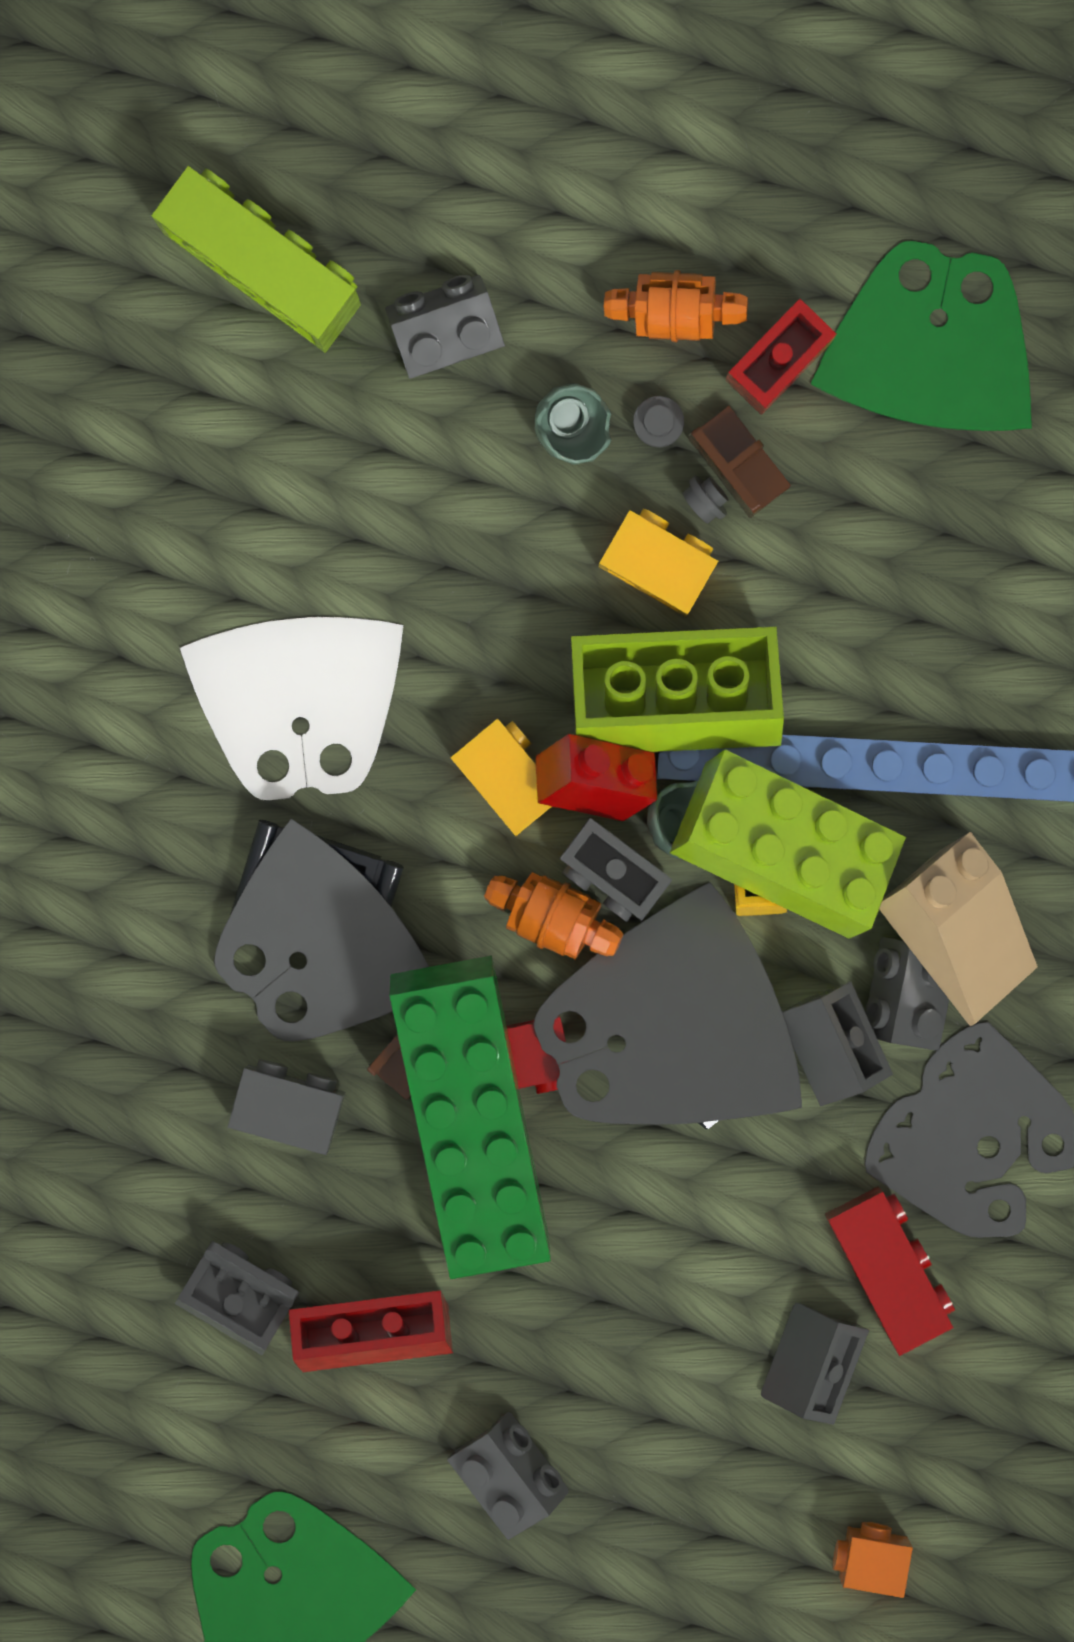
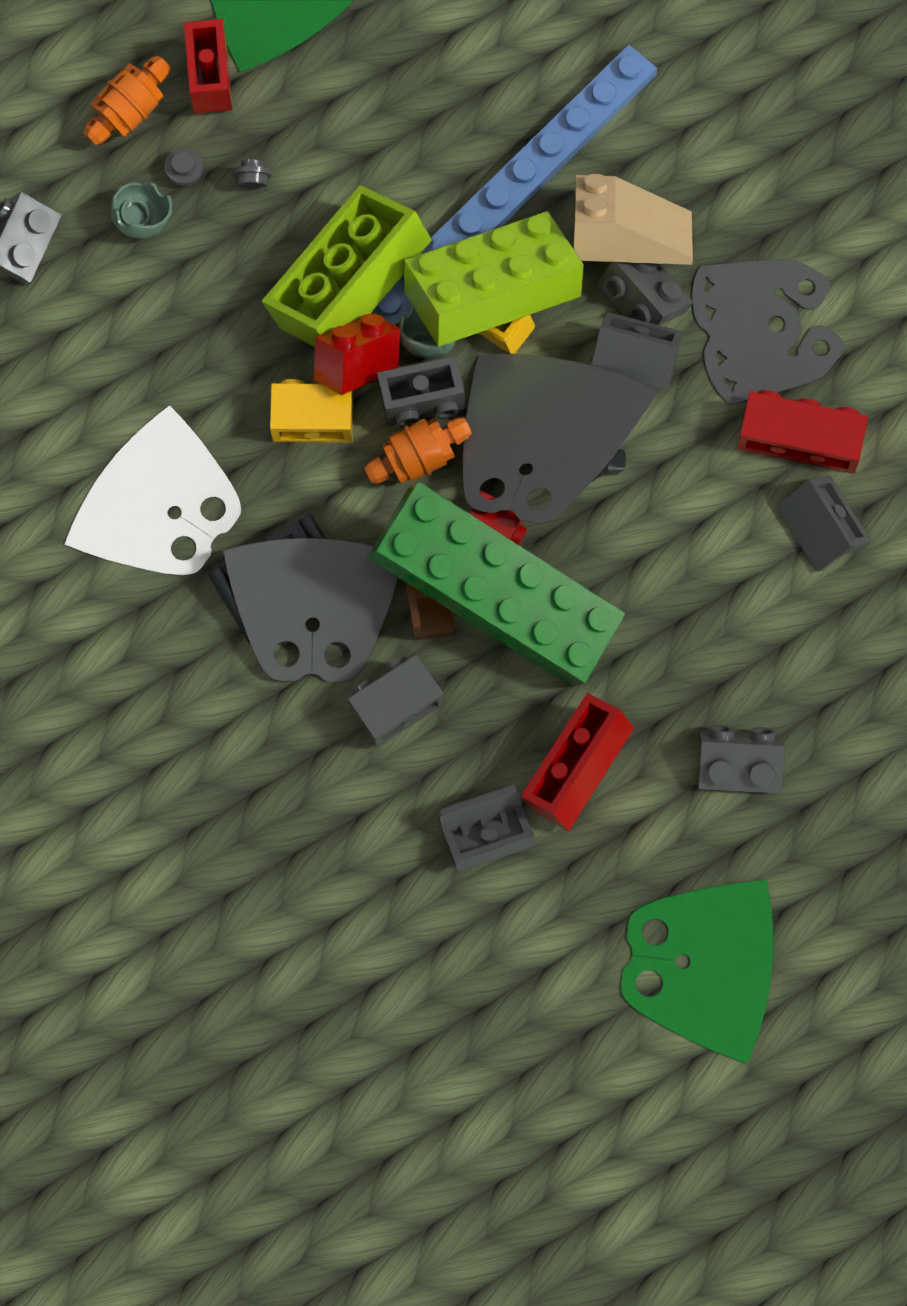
camera: 40 degrees left, 15 degrees down
(659, 562) = (264, 228): yellow brick -> none
(739, 461) = (247, 140): reddish brown panel -> none

